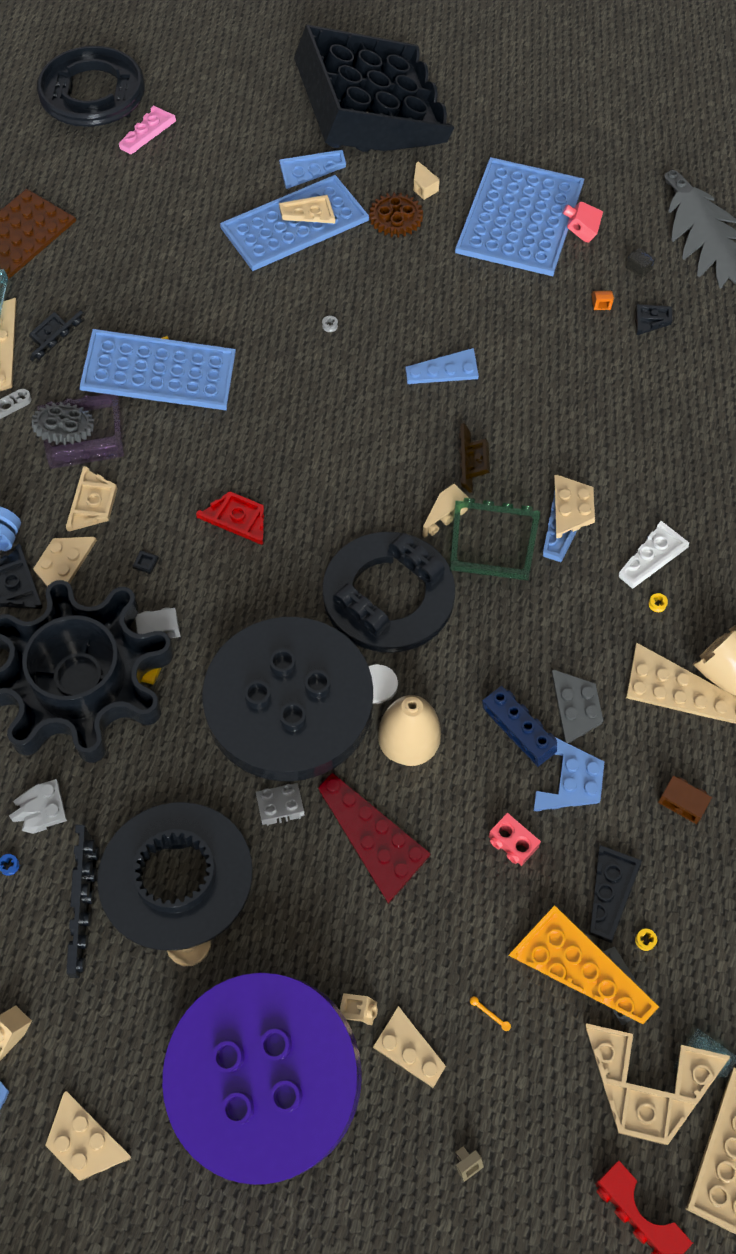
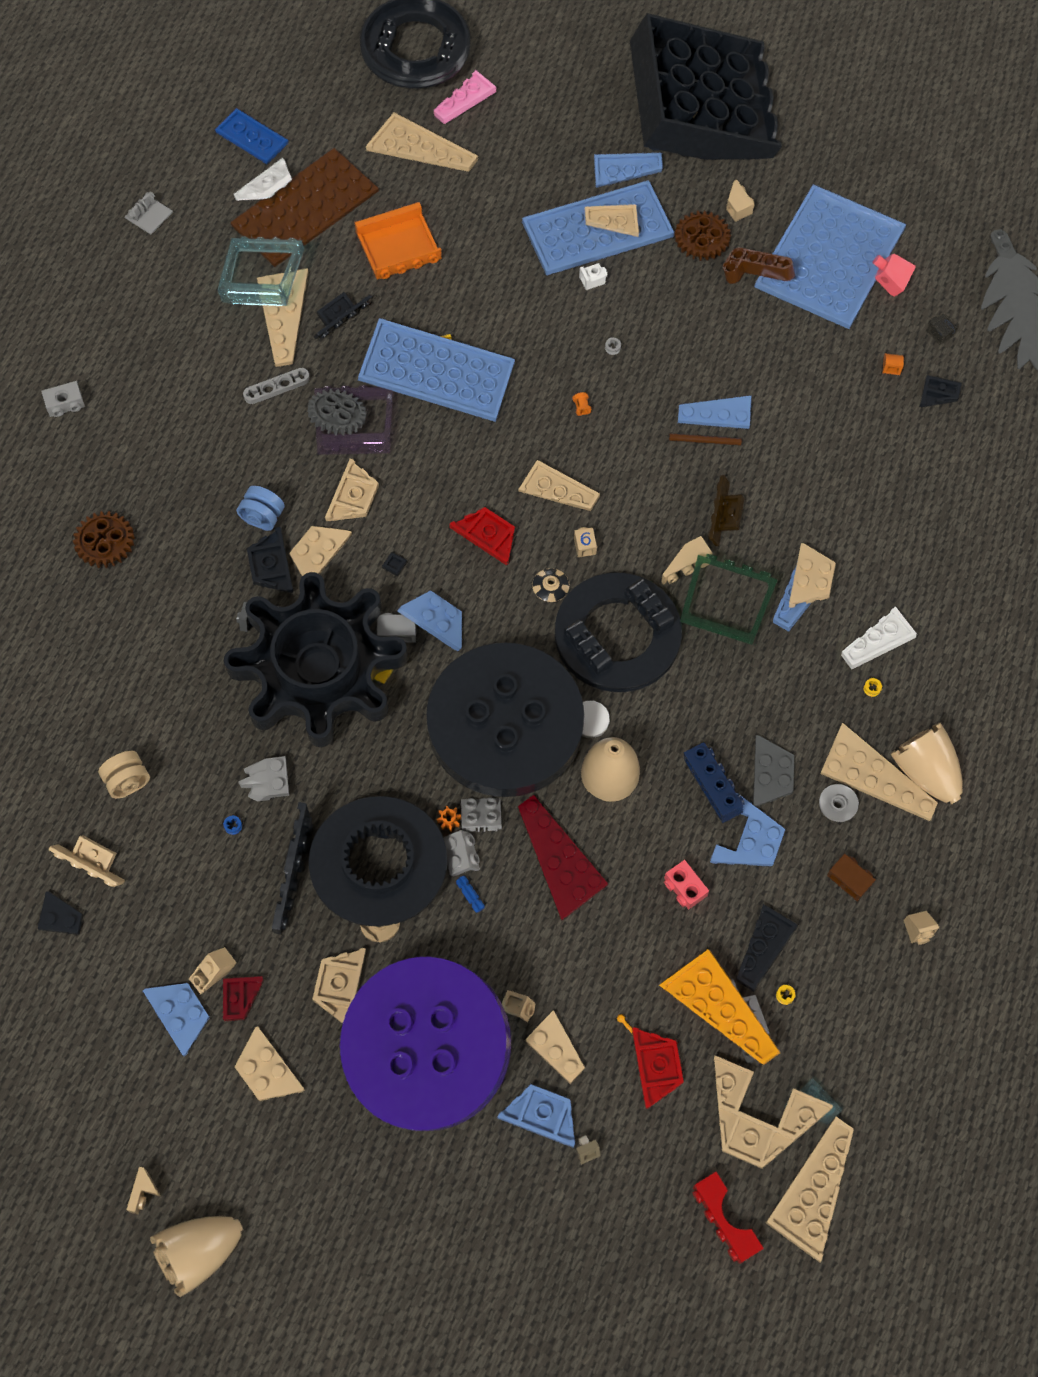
camera: 10 degrees right, 5 degrees up
(40, 1059) = (239, 996): none -> dark red wing
(98, 172) = (410, 141): none -> tan wing
(100, 260) = (397, 241): none -> orange panel
(152, 1021) = (338, 982): none -> tan wing
(197, 607) = (436, 617): none -> medium blue wing
(244, 807) = (449, 824): none -> orange gear
(265, 849) = (461, 853): none -> light grey bracket
(283, 892) = (470, 894): none -> blue axle
(298, 264) = (593, 276): none -> white brick
(300, 461) = (557, 487): none -> tan wing
(309, 380) = (581, 402): none -> orange bush
(311, 563) = (547, 591): none -> dish
(338, 508) = (585, 542): none -> tan brick
(409, 1131) = (542, 1114): none -> medium blue wing
(437, 394) = (705, 439): none -> reddish brown bar
(455, 229) = (757, 263): none -> reddish brown beam
(525, 1048) = (657, 1065): none -> red wing
(656, 716) = (843, 795): none -> light grey dish

